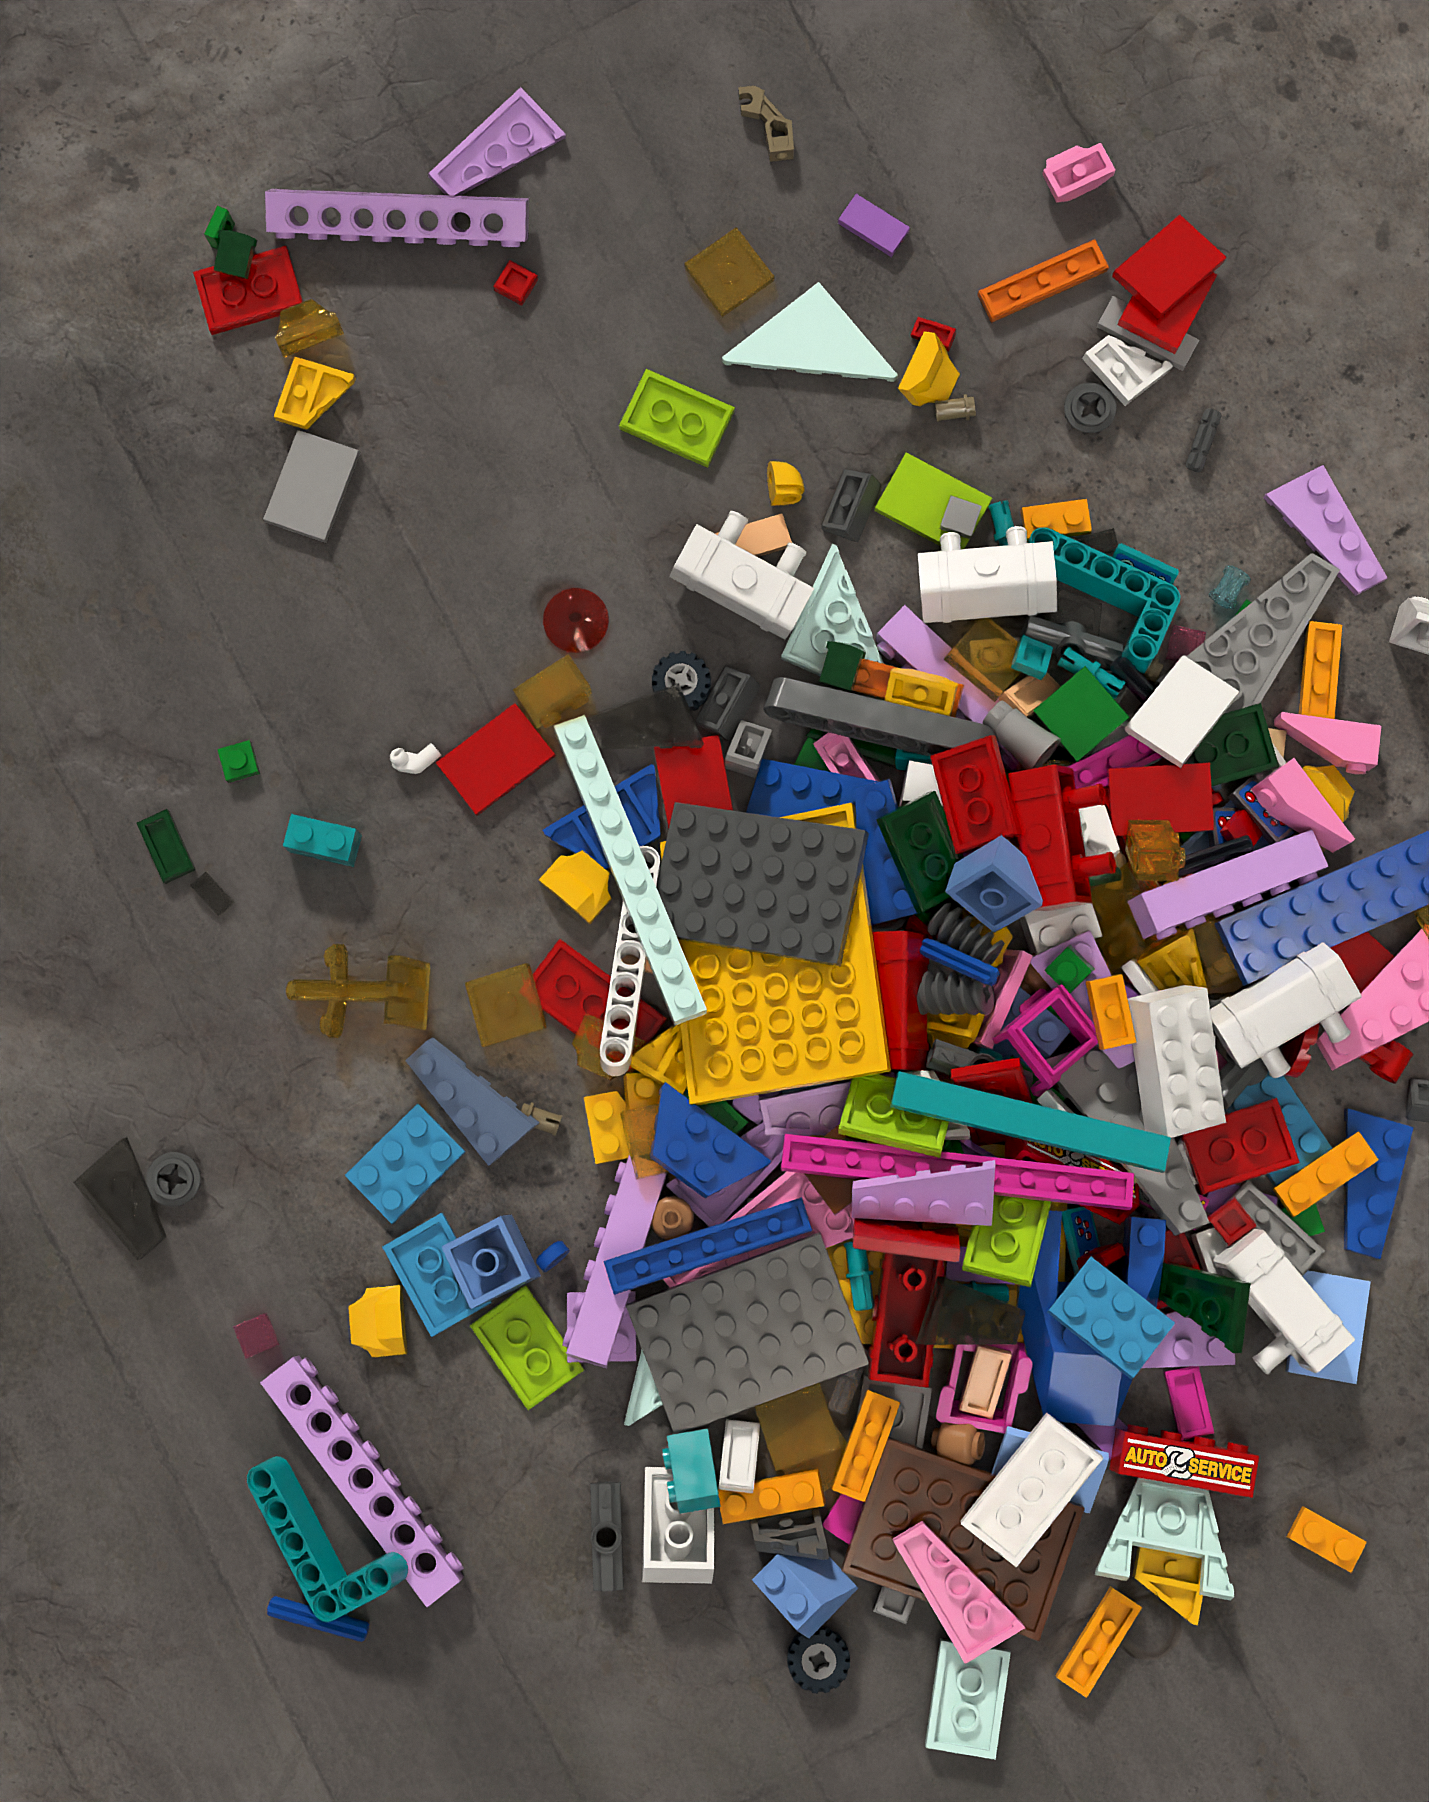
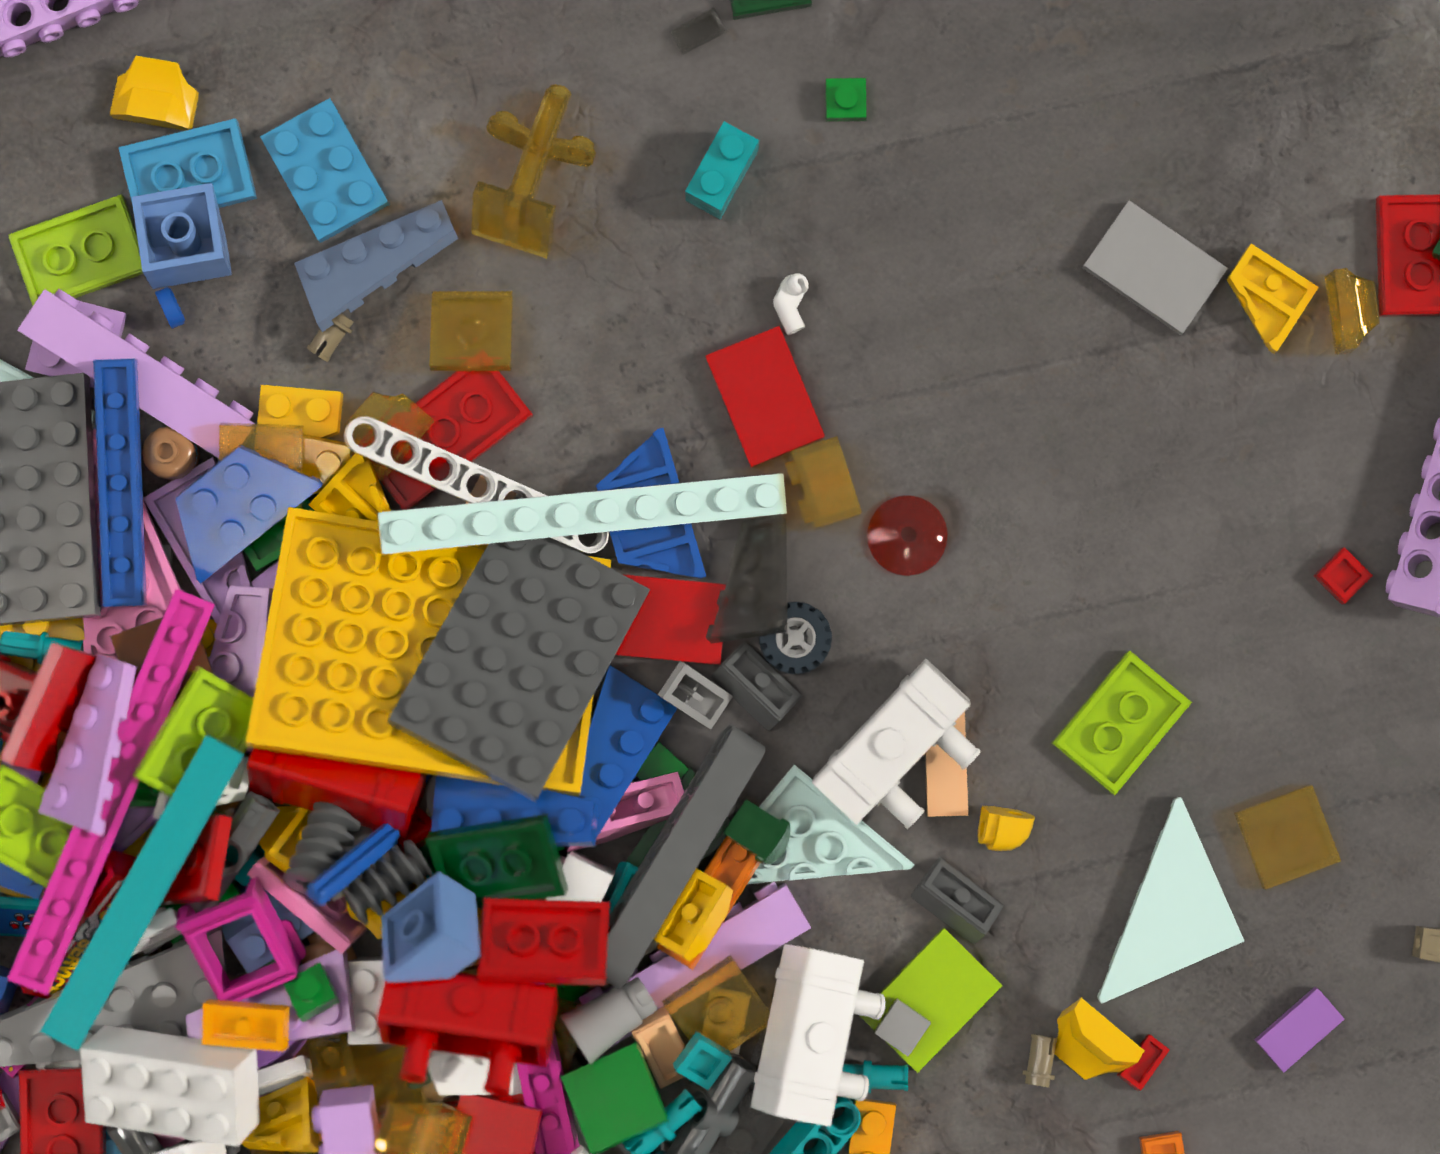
camera: 100 degrees right, 5 degrees up
(579, 884) = (588, 452): yellow slope -> none

